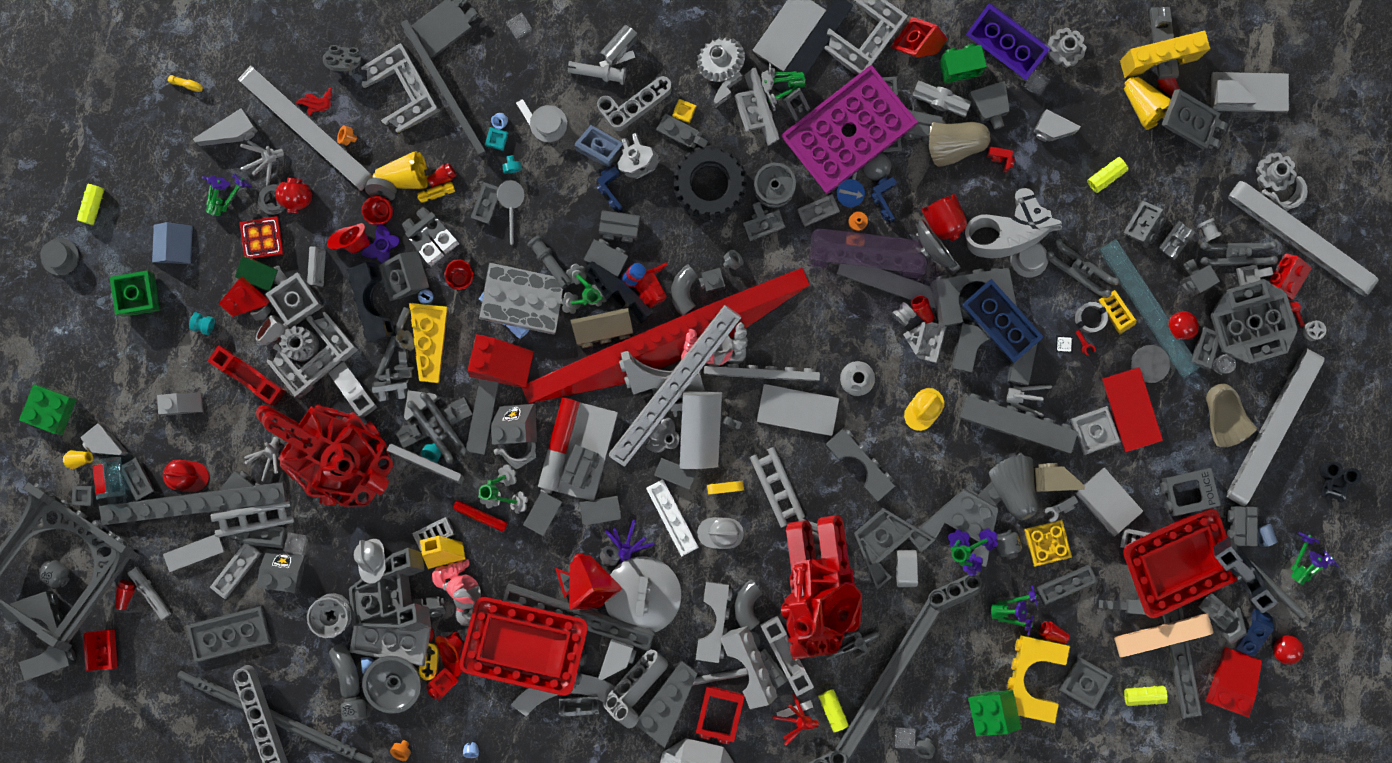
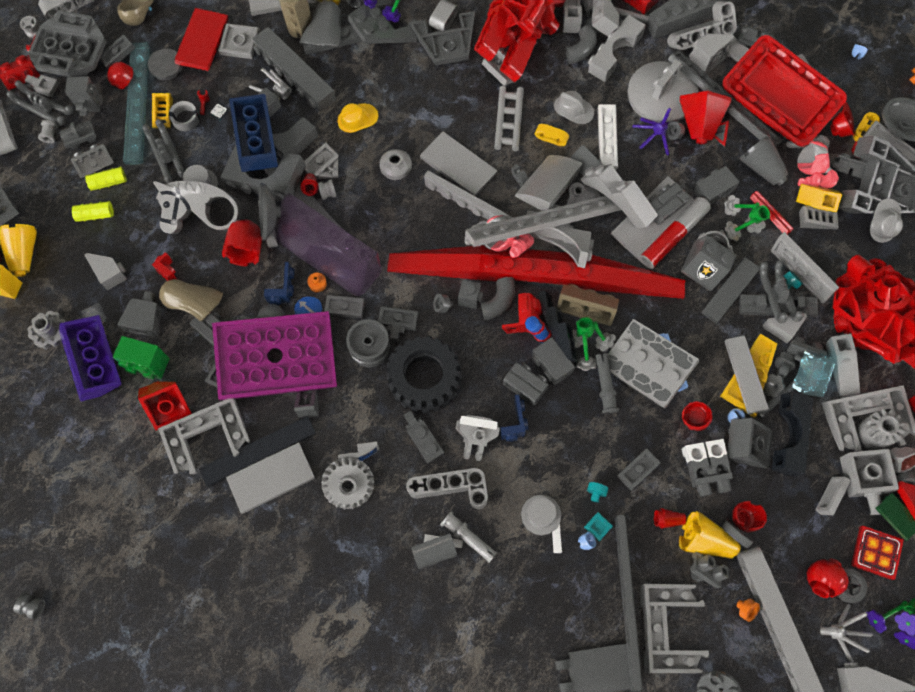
camera: 150 degrees left, 15 degrees down
(316, 104) = (765, 663): red piece -> none
(349, 238) = (790, 505): red piece -> none
(375, 363) = (814, 374): none -> clear light blue brick
(381, 245) = (757, 484): dark purple animal -> none
(391, 147) = (706, 569): none -> dark grey hips
(433, 334) = (746, 375): none -> light grey tile
(436, 192) = (681, 506): yellow axle -> none
(441, 684) = (863, 104): red bracket -> none
(500, 361) = (695, 322): red slope -> none
(509, 564) = (766, 161): none -> dark grey cone
(510, 195) = (614, 464): light grey piece -> none
(519, 26) = (520, 625): clear plate -> none
(598, 146) = (505, 464): sand blue slope -> none
(600, 510) = (666, 165): dark grey slope -> none
(627, 448) = (623, 193): none -> light grey arch
(638, 162) = (478, 422): none -> white sticker
(684, 111) = (409, 457): yellow tile -> none
(755, 109) = (344, 421): light grey bracket -> none
(794, 80) = (319, 427): plant -> none
(877, 482) = (438, 116): dark grey arch -> none
(941, 98) = (180, 343): light grey piece -> none
(1118, 213) = (106, 178): none -> neon yellow axle
(1229, 364) = (111, 34): clear wheel -> none

